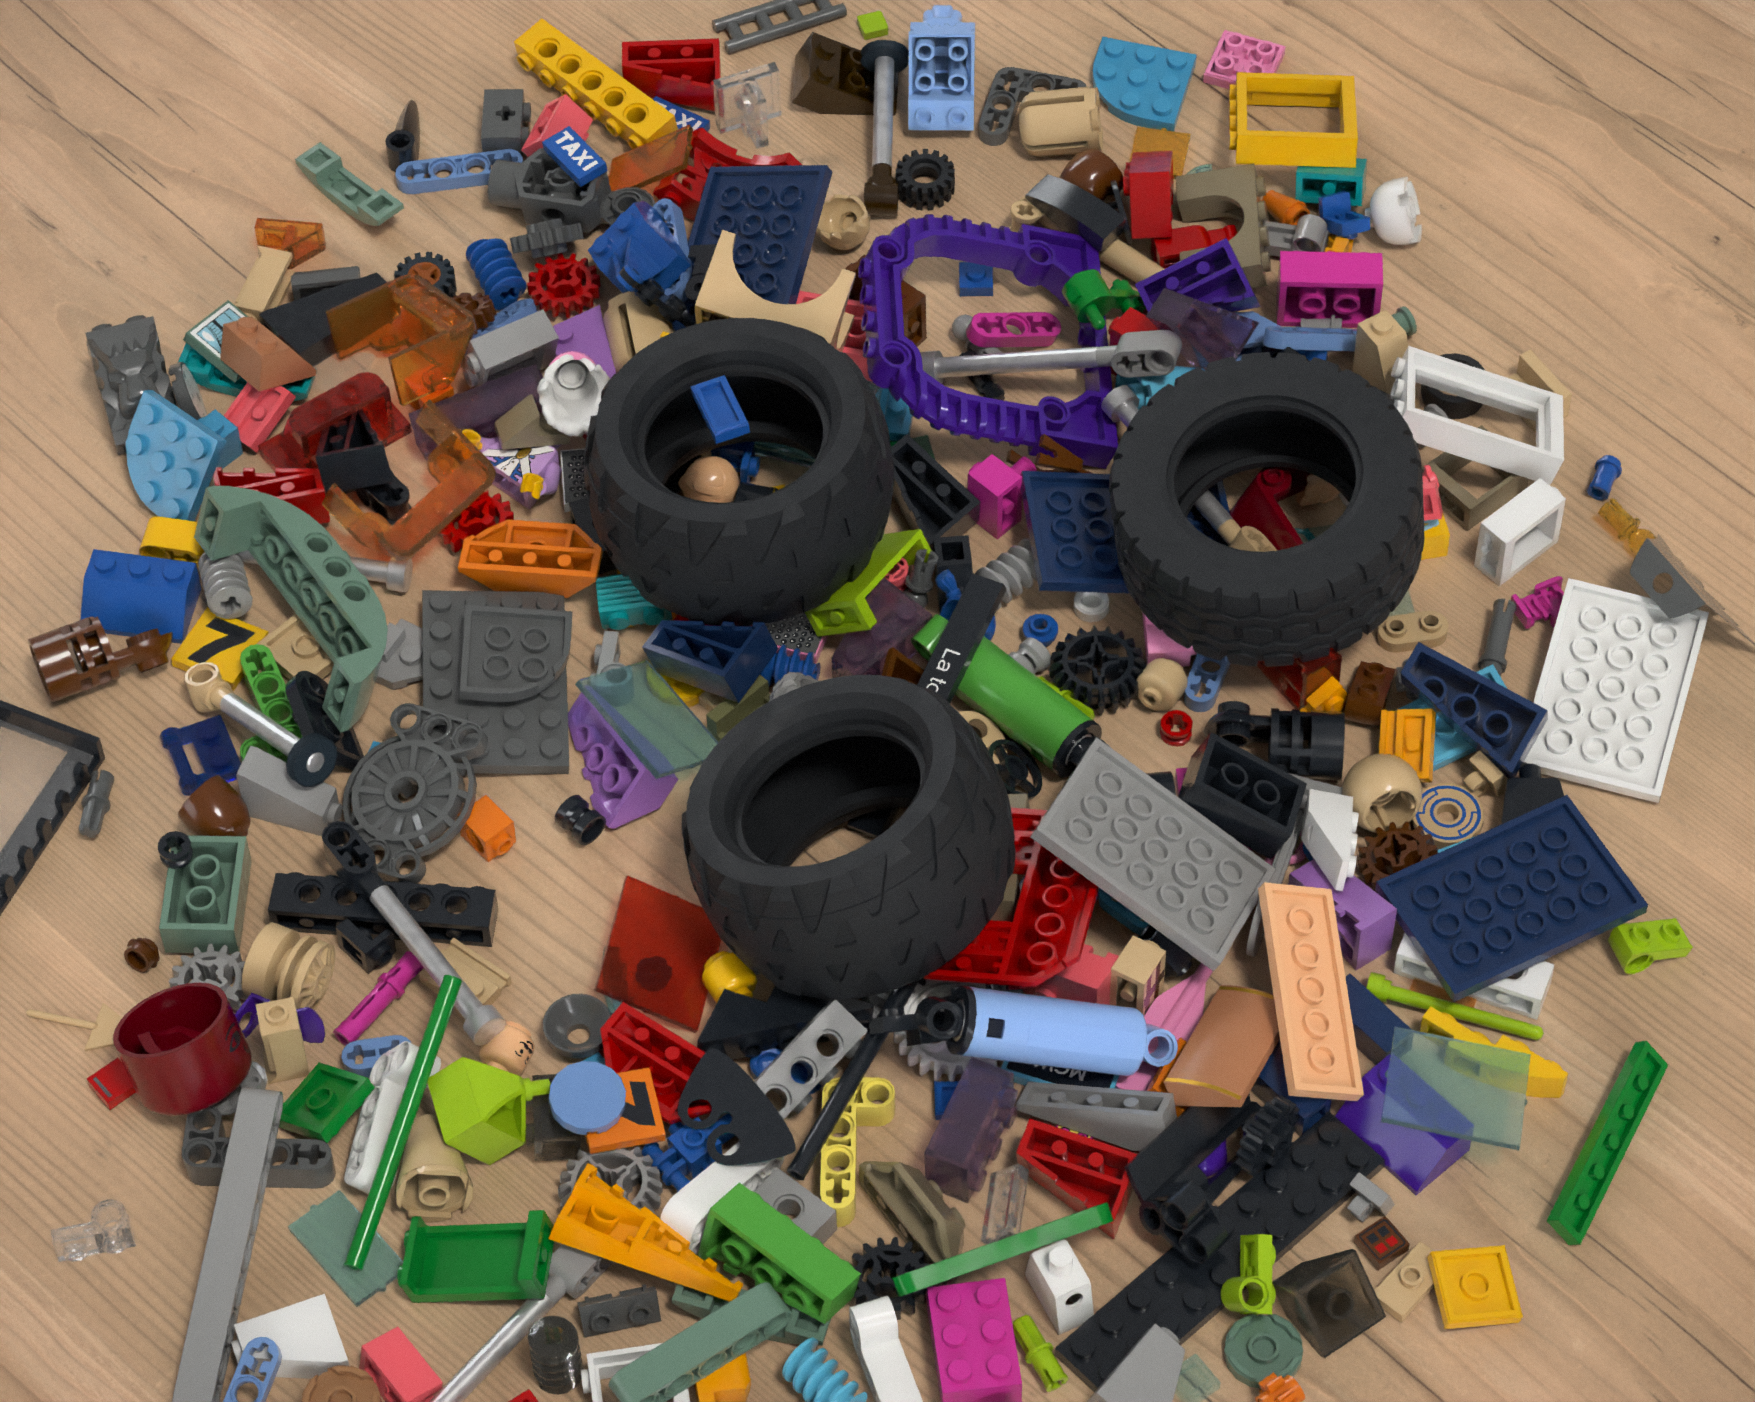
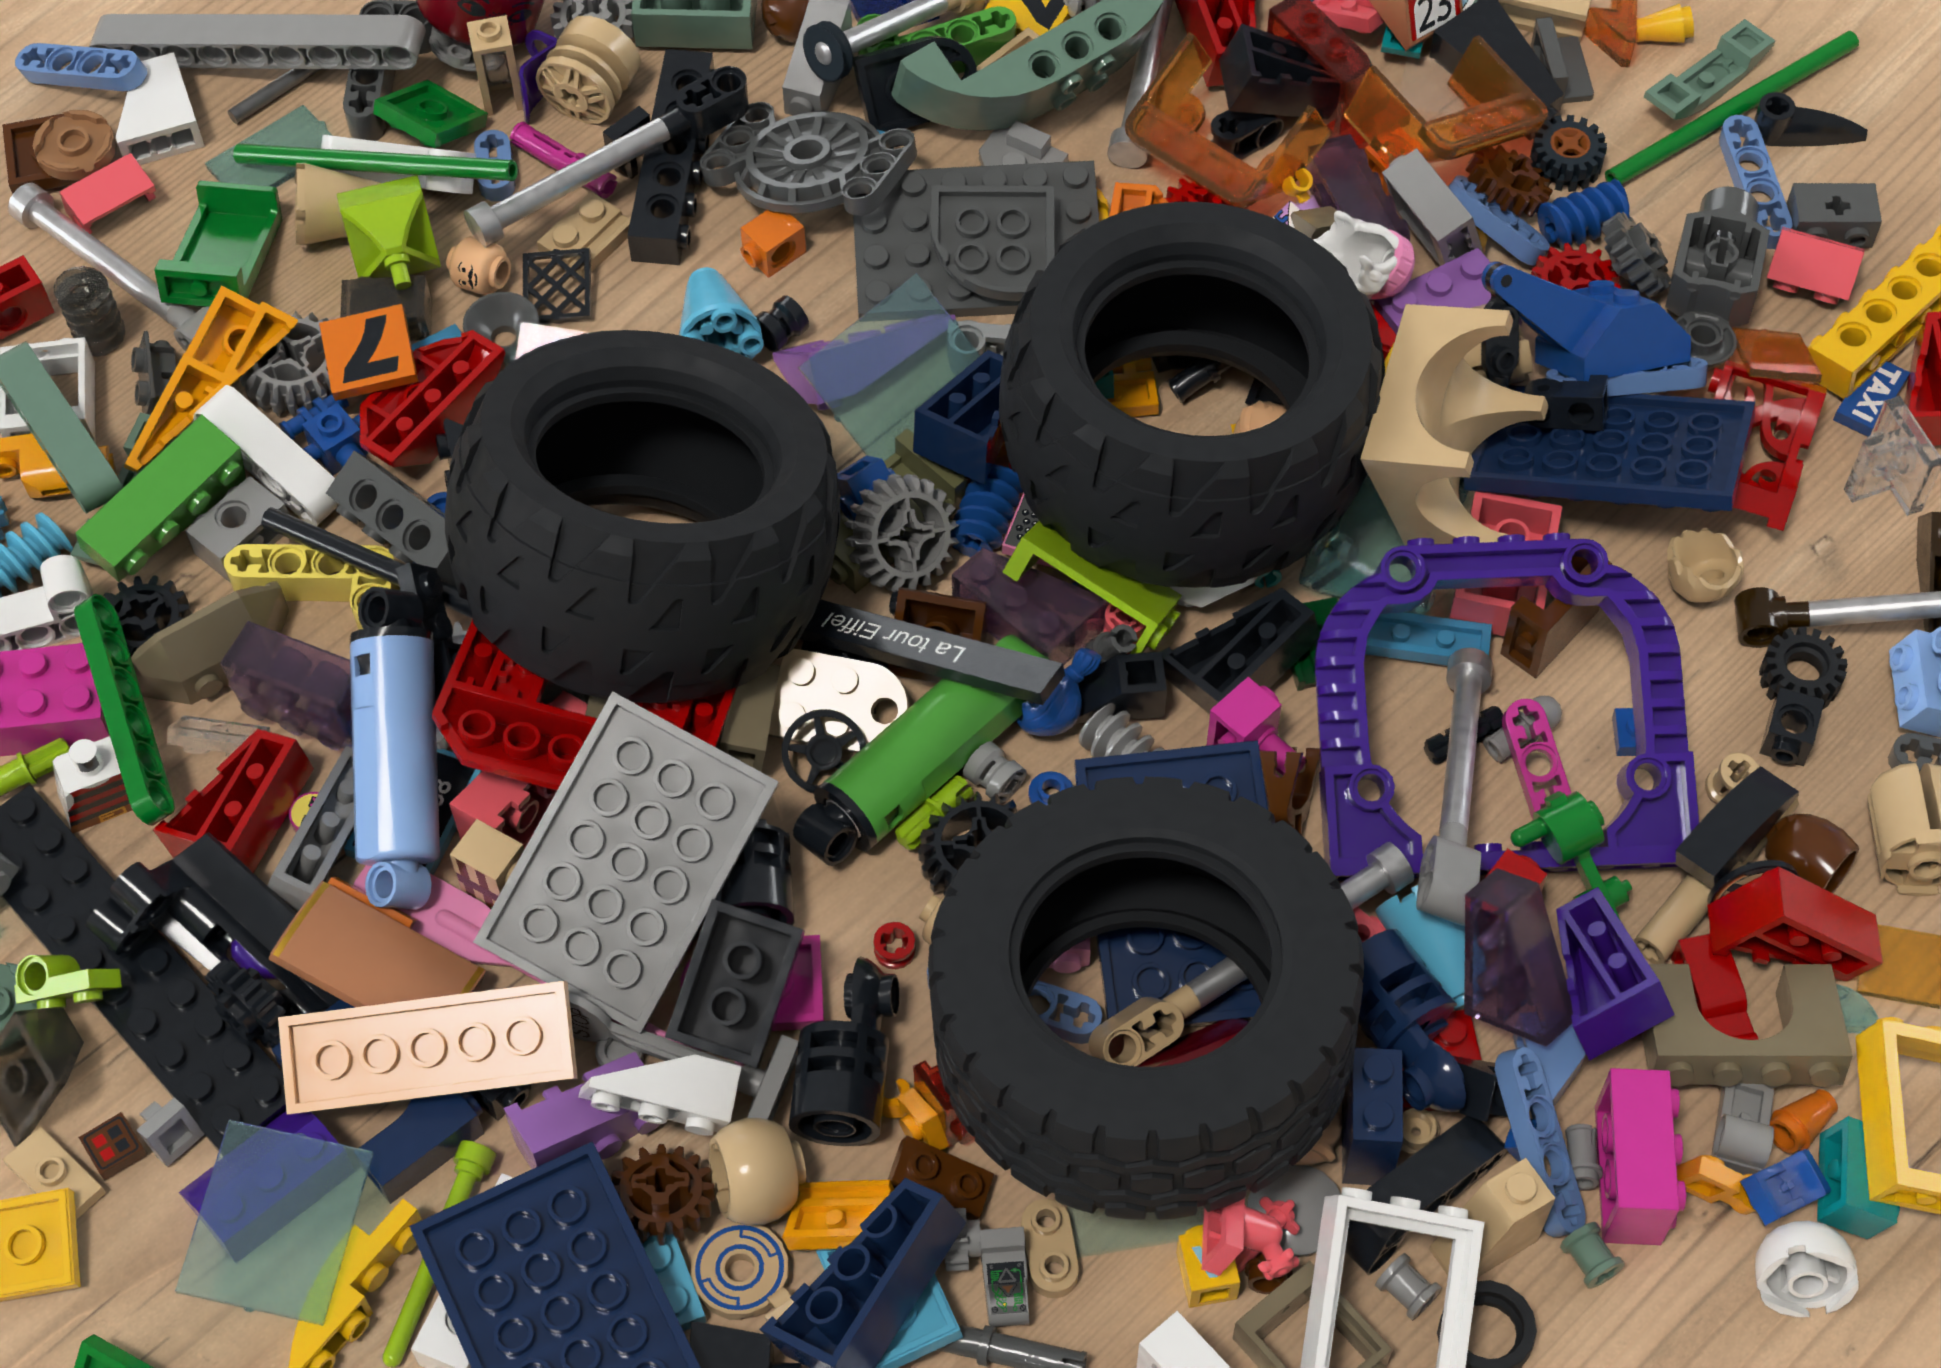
camera: 90 degrees right, 5 degrees up
(260, 1247) = (269, 93): none -> flat silver bar
(292, 204) = (1667, 25): none -> yellow cone
(381, 177) = (1737, 105): none -> green piece
(524, 969) = (557, 256): none -> black window
(574, 156) = (1750, 258): blue tile -> none
(578, 861) = (719, 315): none -> medium azure cone
(587, 1097) = (372, 311): medium blue tile -> none
(720, 409) = (1209, 313): blue tile -> none
(754, 1118) = (380, 441): black piece -> none
(976, 188) = (1795, 712): none -> black brick
(1456, 645) = (1005, 1276): none -> leg

